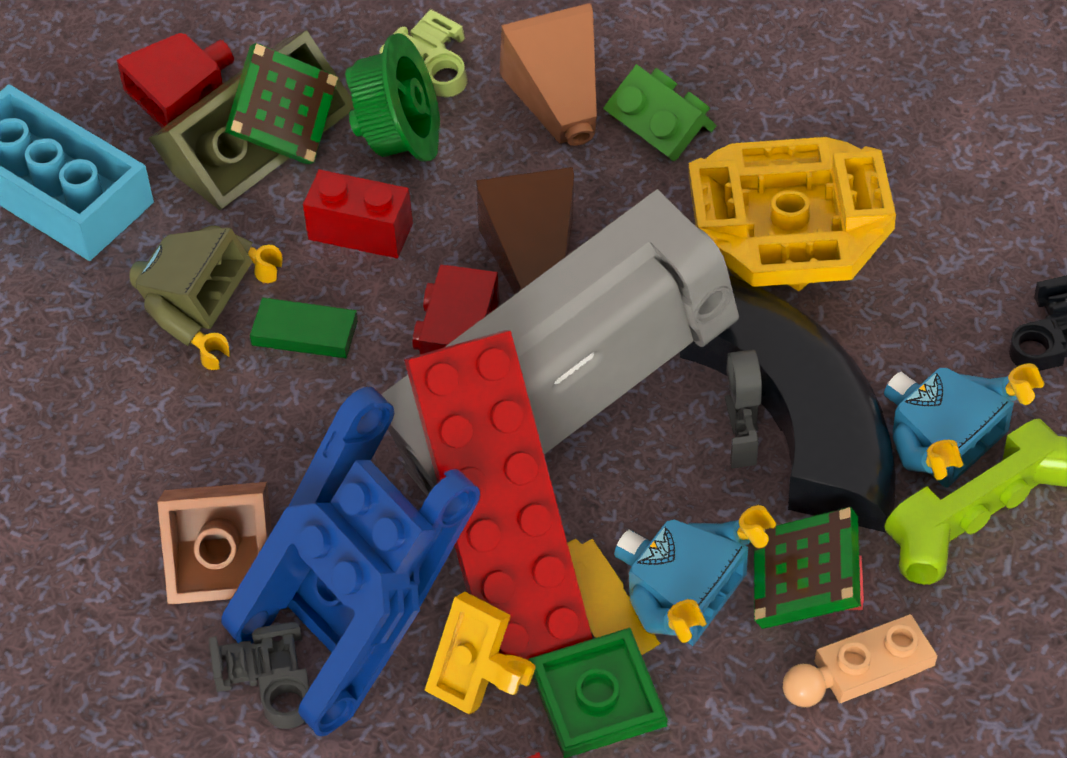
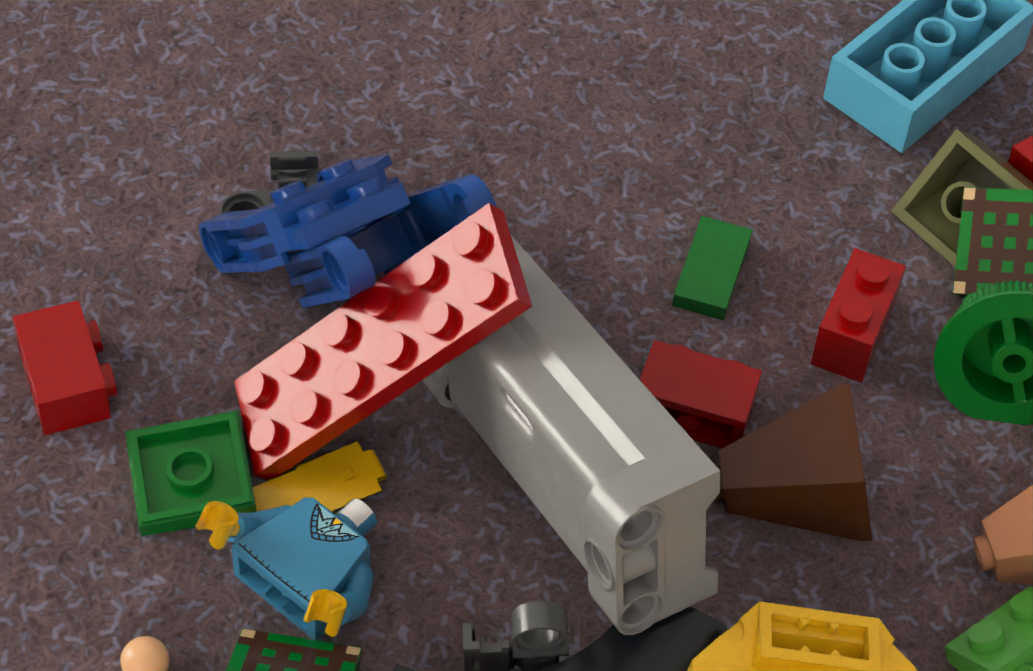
camera: 90 degrees right, 0 degrees up
(193, 280) = (770, 162): olive torso -> none
(211, 538) = (444, 146): nougat slope -> none
(470, 656) = (237, 348): yellow plate -> none

